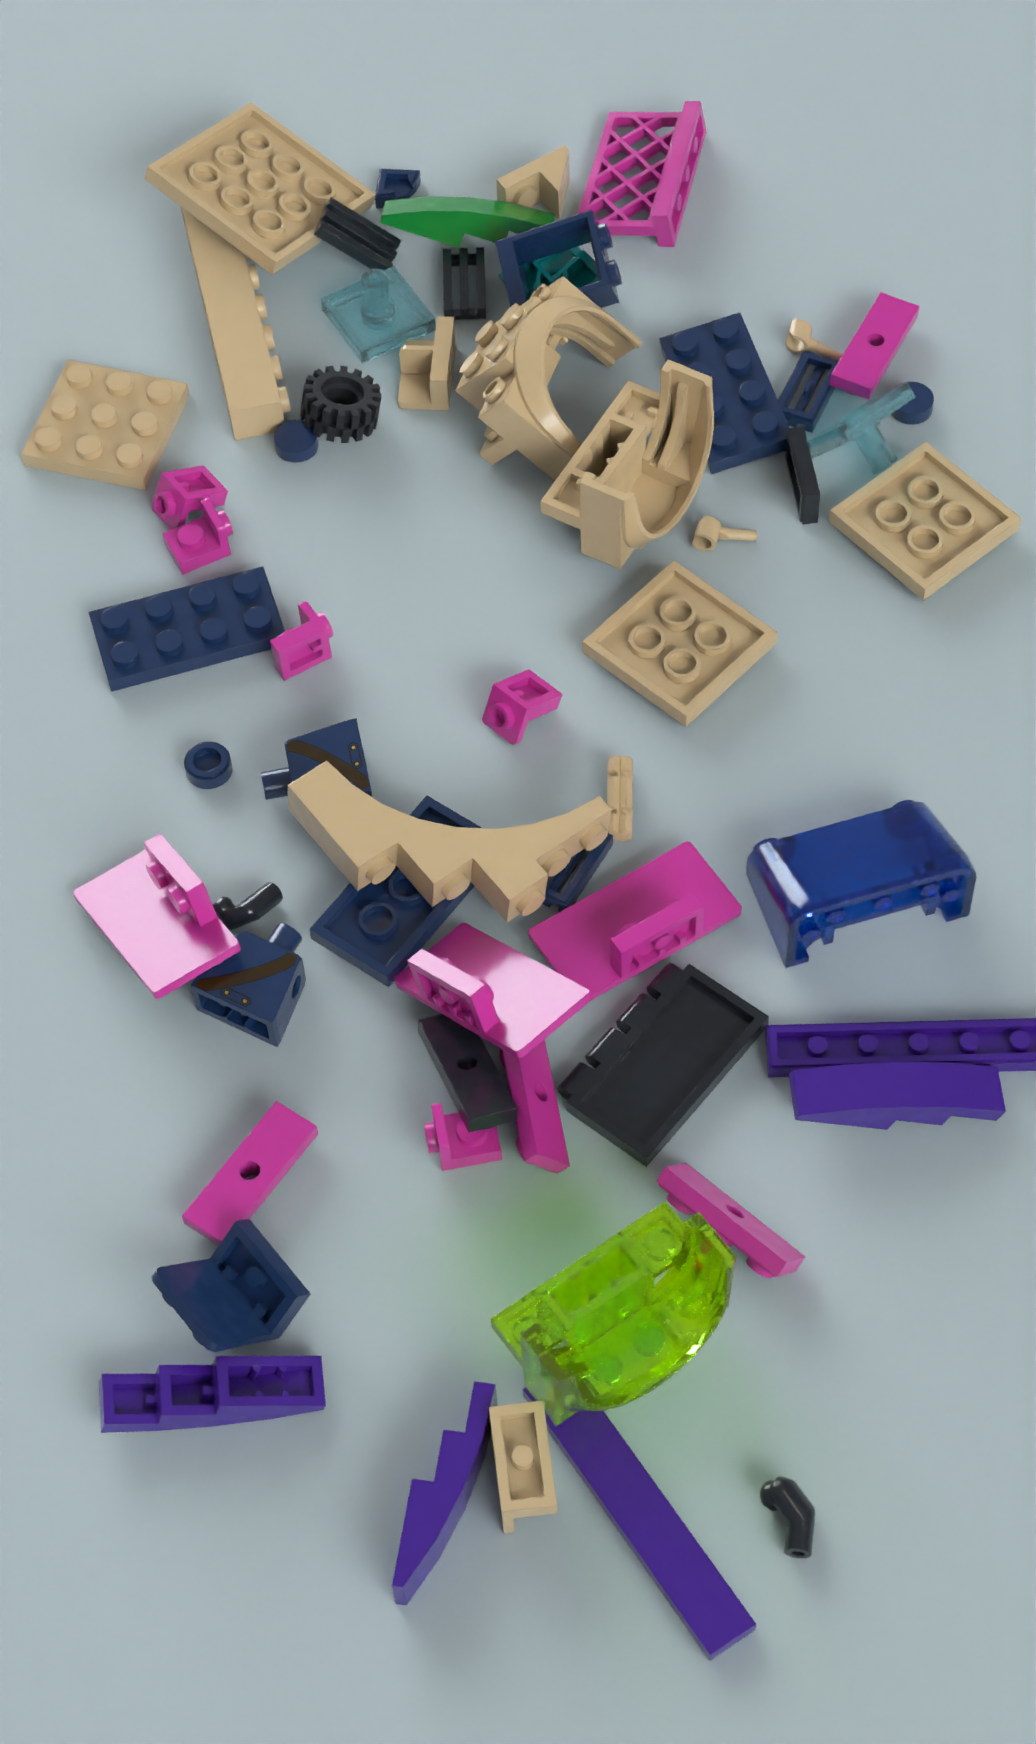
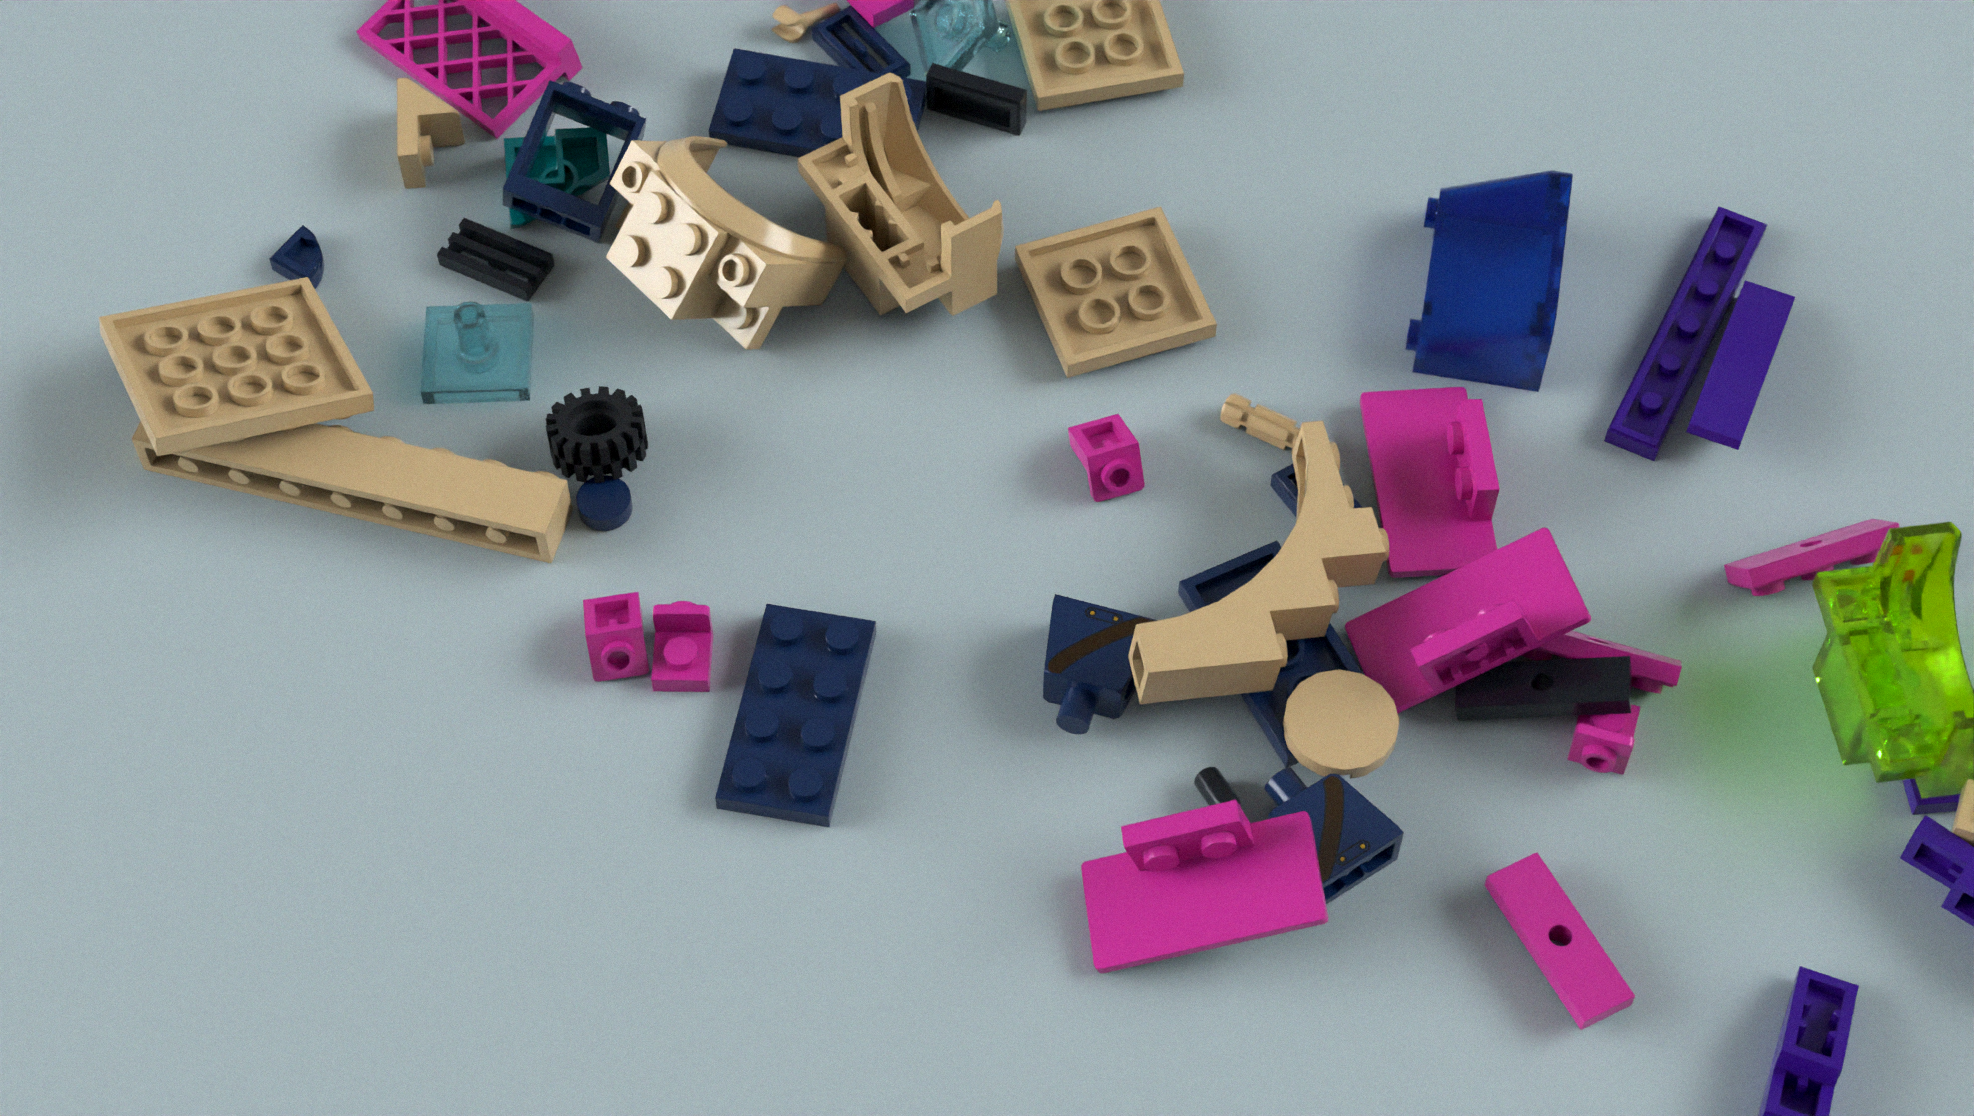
camera: 65 degrees left, 0 degrees up
(106, 424) = (440, 675): tan plate -> none
(208, 765) = (999, 771): dark blue tile -> none
(237, 1294) = (1704, 1003): dark blue bracket -> none
(304, 645) = (900, 596): dark pink bracket -> none
(351, 946) = (1340, 723): none -> tan tile
(360, 233) = (367, 316): black tile -> none
(428, 369) = (596, 337): tan panel -> none
(450, 217) = (416, 213): green slope -> none
(665, 1062) = (1604, 529): black hinge -> none
(710, 530) = (985, 199): tan hand -> none

